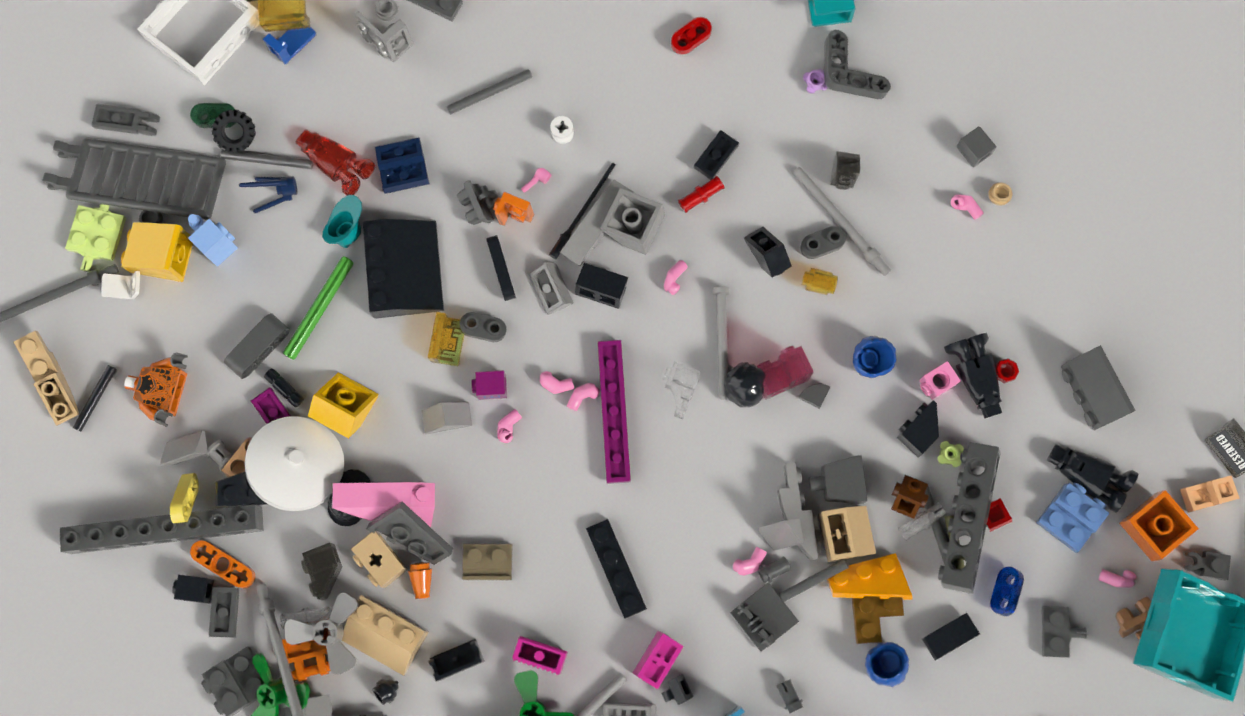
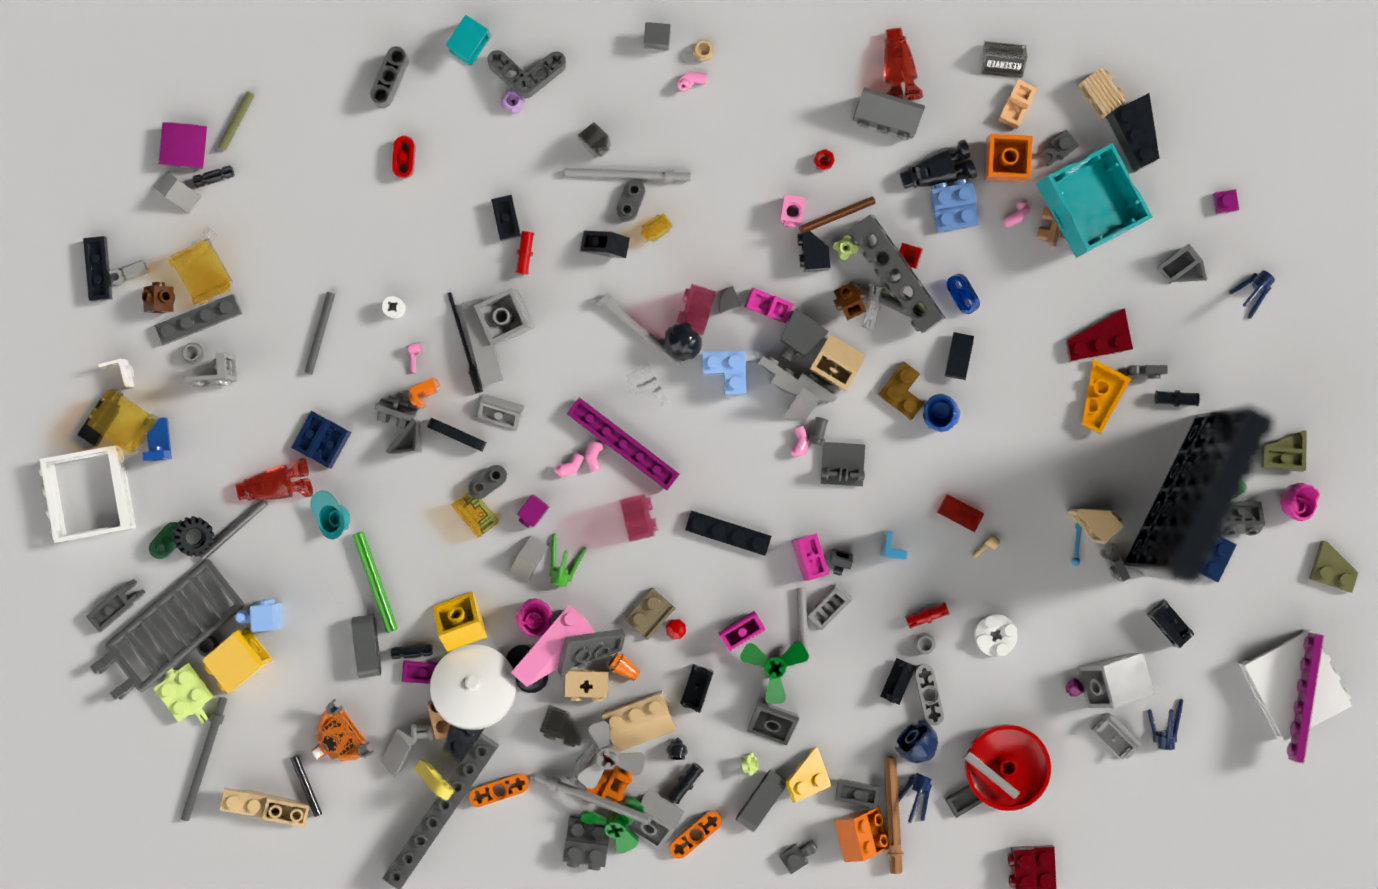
camera: 55 degrees left, 10 degrees up
(120, 286) = (240, 704): white bracket -> none
(193, 589) = (499, 822): black brick -> none
(224, 612) = (532, 814): dark grey plate -> none
(284, 185) = (263, 533): dark blue plant -> none
(398, 463) = (534, 617): none -> dark pink hair
(402, 267) = (397, 500): black slope -> none
(455, 454) = (560, 575): none -> bright green plant
(461, 232) = (408, 441): none -> dark grey slope
(493, 596) = (676, 629): none -> red tile
(505, 426) = (569, 524): bright pink arm -> none
(561, 476) = (638, 517): none -> clear pink brick
(601, 285) = (529, 377): black hinge -> none
(670, 282) = (563, 317): bright pink arm -> none
(761, 441) = (729, 364): none -> light blue brick
(790, 698) = (906, 492): dark grey pin -> none
(814, 580) = (848, 411): dark grey bar -> none
(841, 432) = (768, 305): none -> dark pink slope
(873, 577) = (879, 373): light orange wing -> none
(874, 357) = (739, 239): blue hair -> none
(971, 421) = (837, 215): none -> reddish brown bar
(978, 374) = (810, 180): black piece -> none
(1058, 632) = (1016, 284): dark grey plate -> none
(1145, 364) = (900, 66): none -> clear red piece

